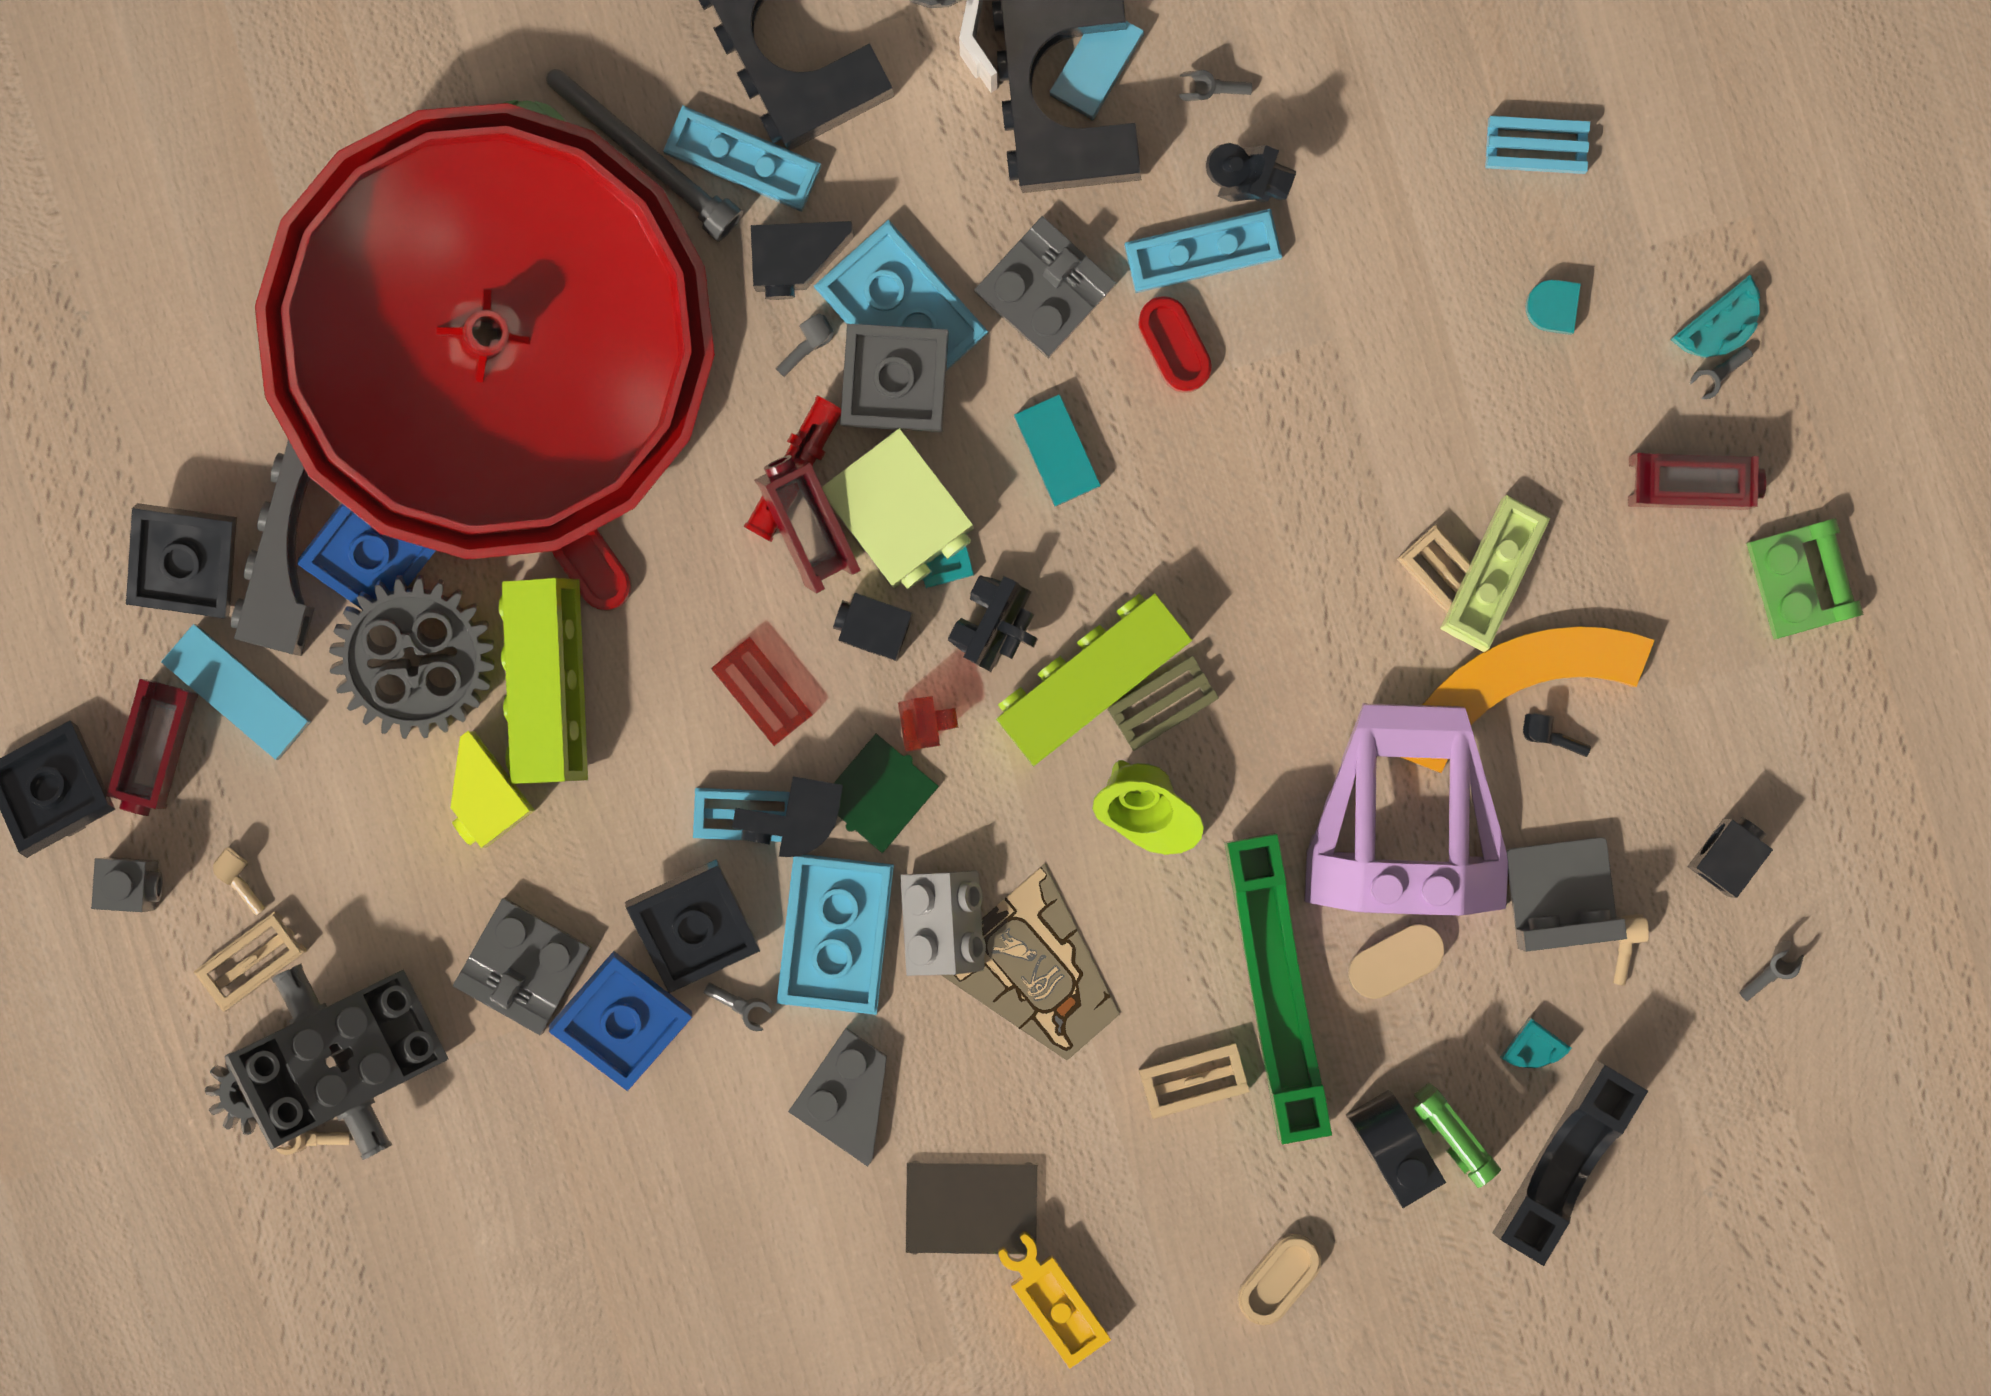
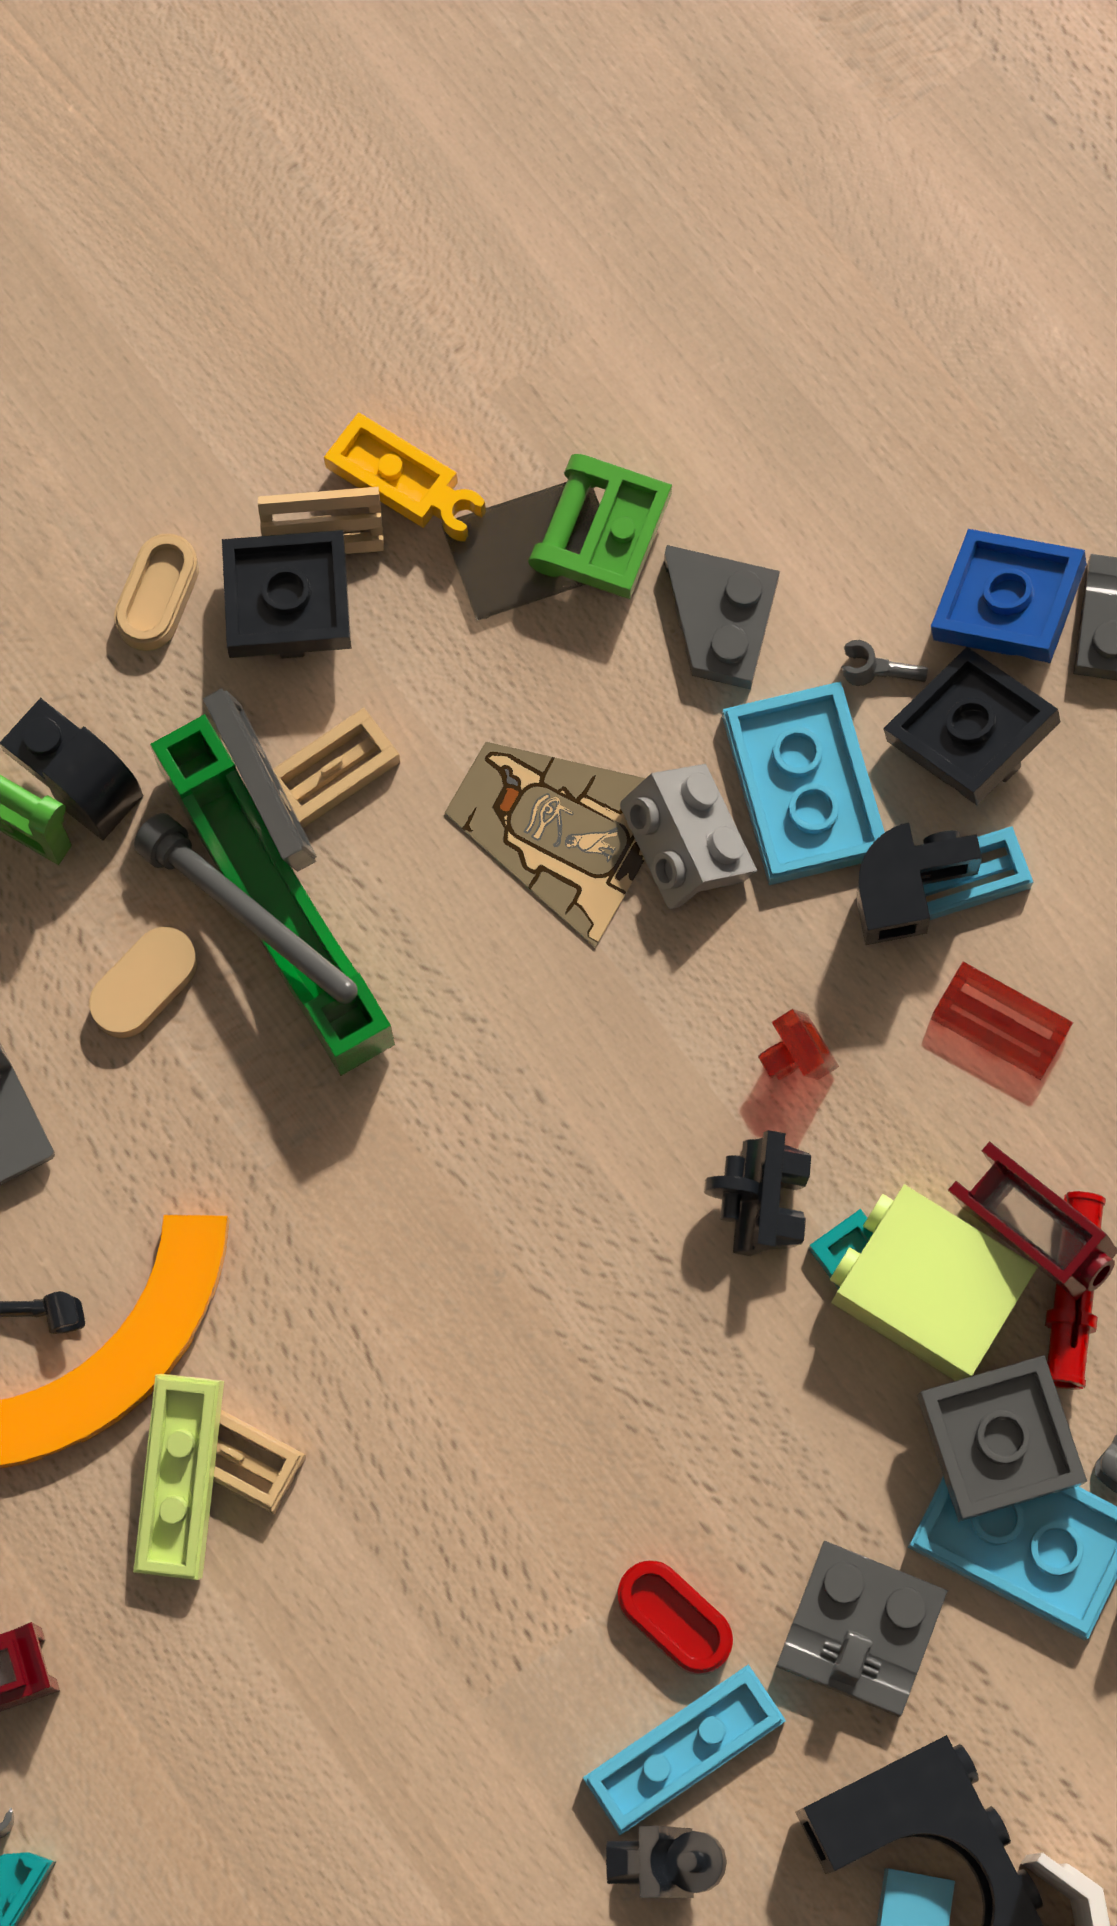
camera: 160 degrees right, 15 degrees down
(872, 626) = (904, 1137): black brick -> none
(882, 792) = (815, 958): dark green piece -> none
(901, 1188) = (618, 534): none -> bright green plate
(1057, 450) = (768, 1431): teal tile -> none
(1093, 679) = (620, 1170): lime brick -> none
(1127, 725) = (558, 1136): olive tile -> none
(1133, 1278) = (327, 500): none -> tan tile
(1146, 809) = (502, 1045): lime piece -> none
(1181, 1231) = (286, 594): none -> black hinge
(1255, 1082) = (260, 779): none -> dark grey tile
(1342, 1061) = (167, 845): none -> dark grey piece
(1403, 886) = (209, 1042): lavender windscreen -> none
(1553, 306) = (218, 1846): teal tile -> none

